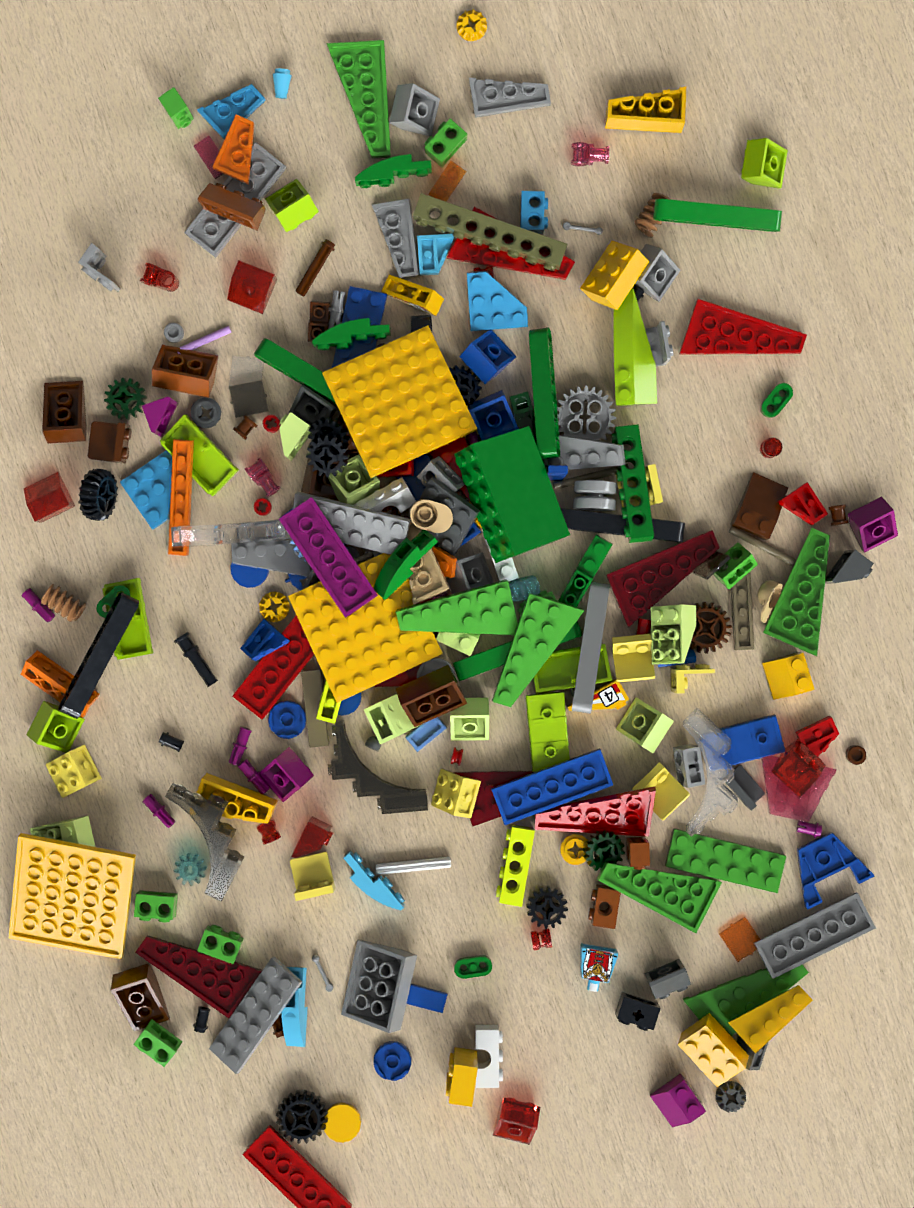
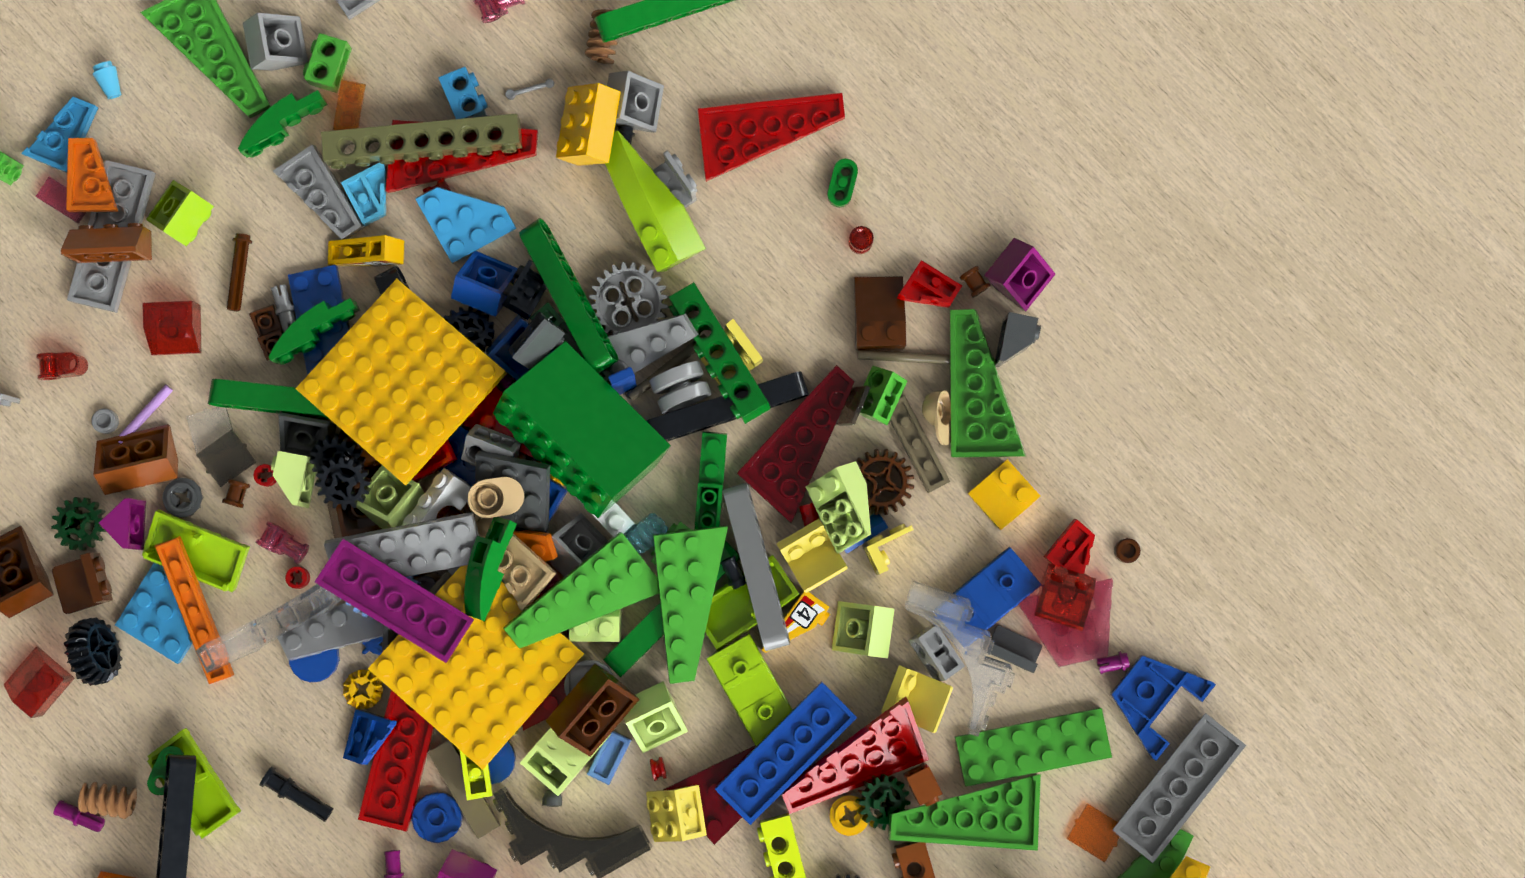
camera: 20 degrees left, 5 degrees down
(508, 416) = (536, 341): none -> dark grey slope
(514, 376) = (526, 291): none -> black bracket
(572, 644) = (733, 572): none -> black pin

